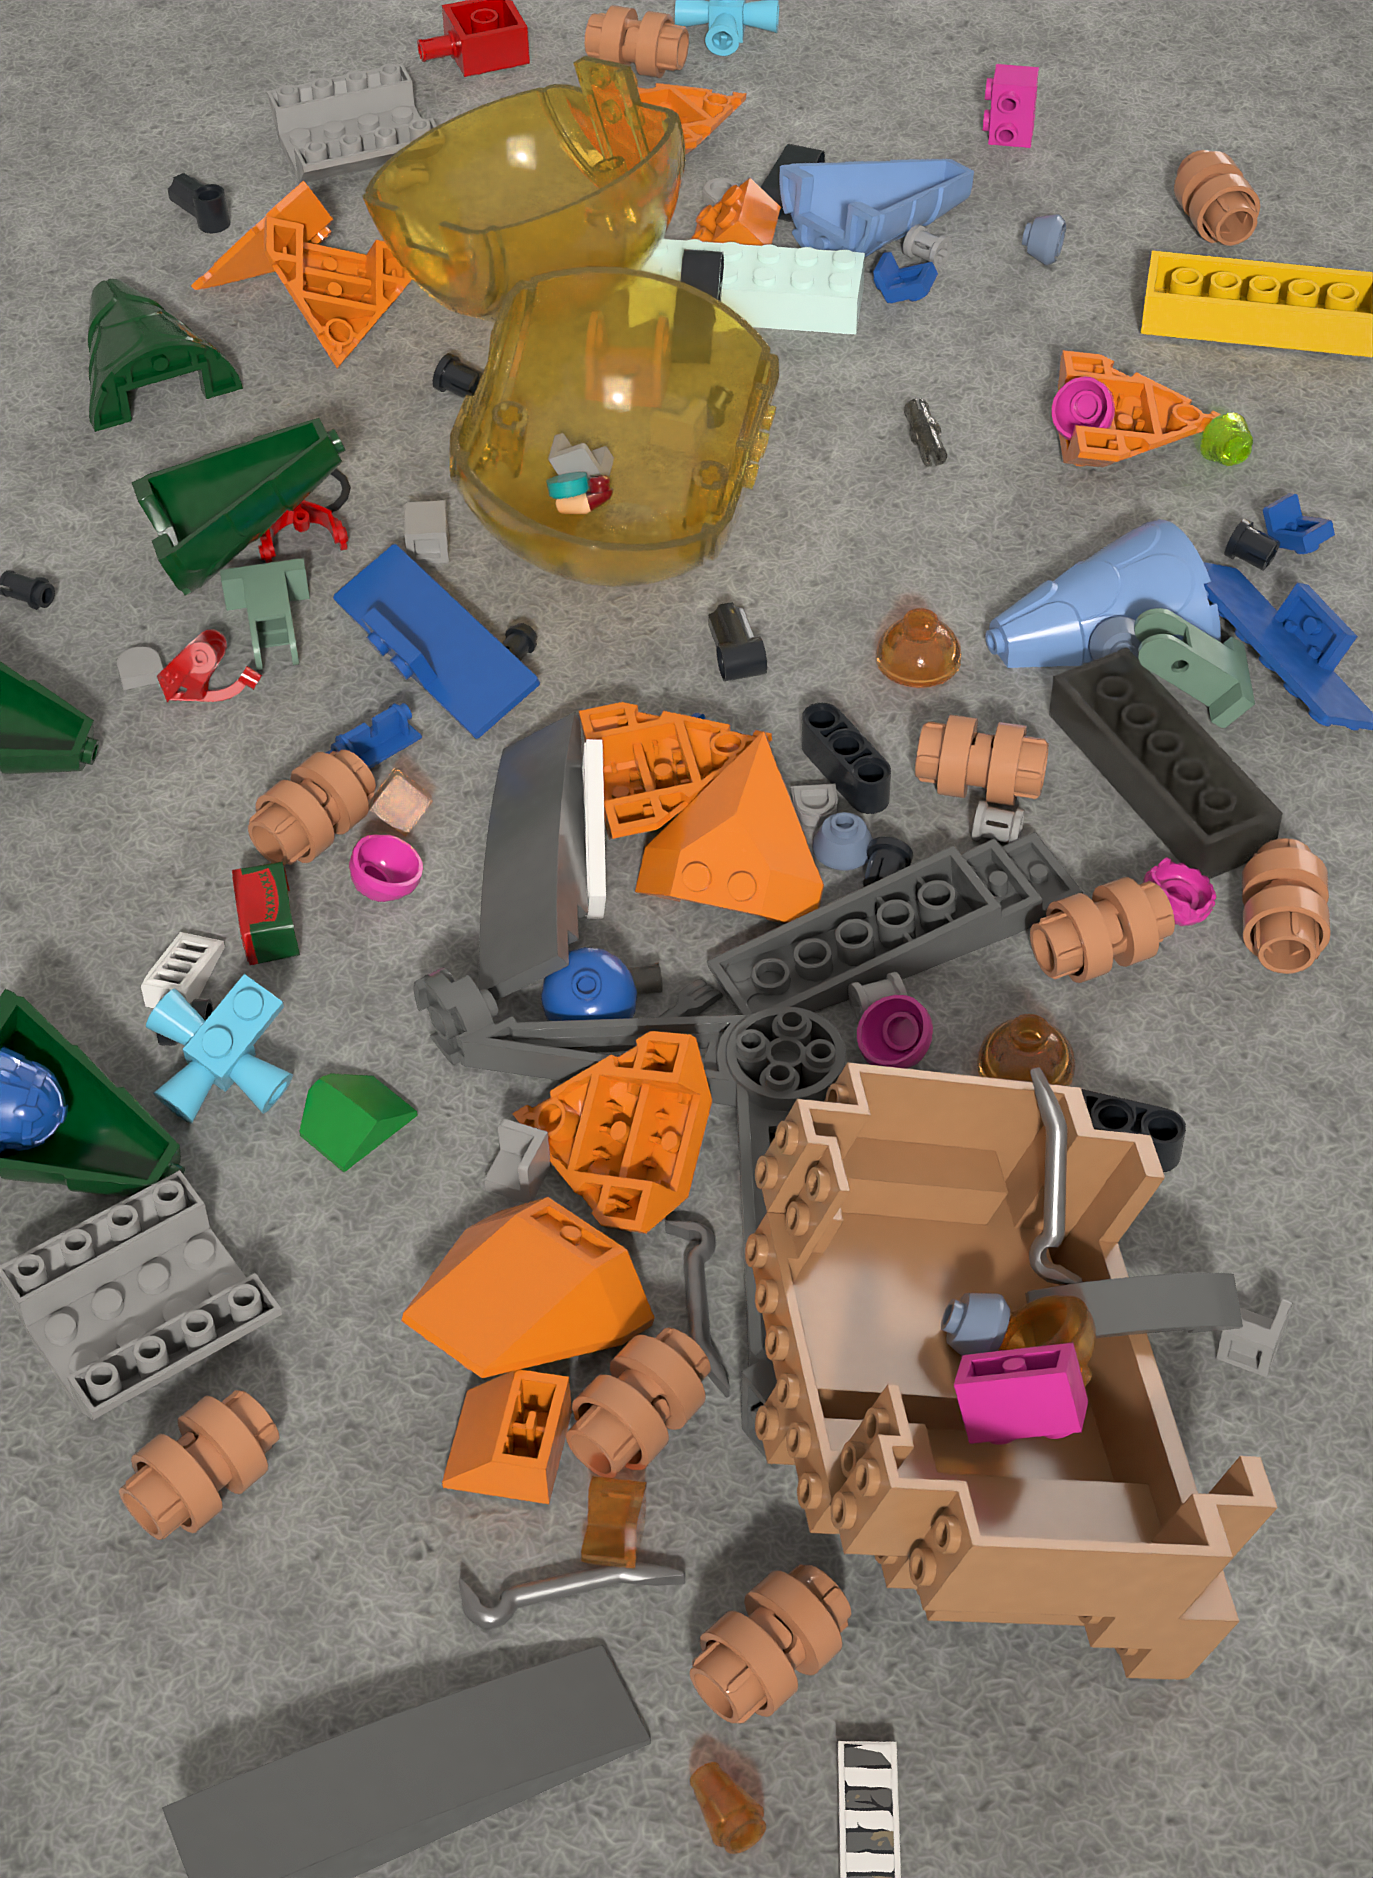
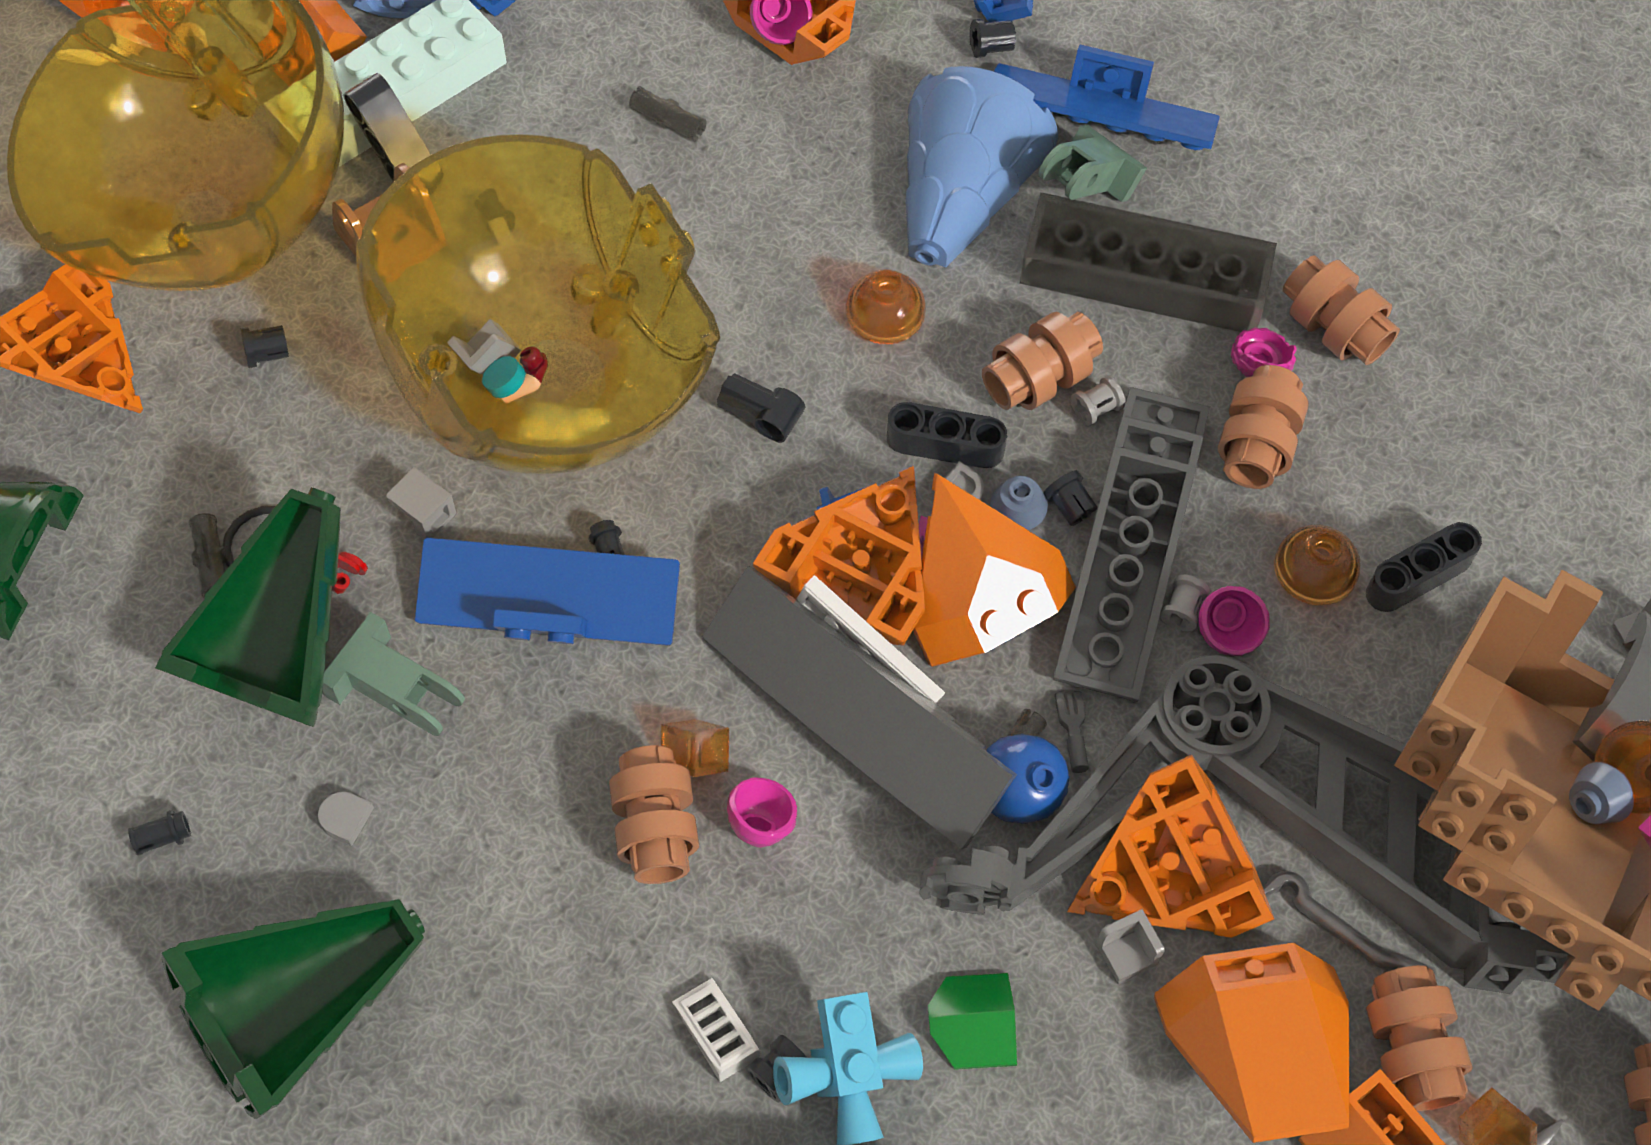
camera: 50 degrees left, 15 degrees up
(195, 667) = (386, 773): red helmet -> none
(264, 913) = (726, 925): piece -> none
(383, 739) = (609, 716): blue hinge -> none
(1054, 1185) = (1548, 661): flat silver piece -> none
(1113, 636) = (1016, 192): sand blue cone -> none

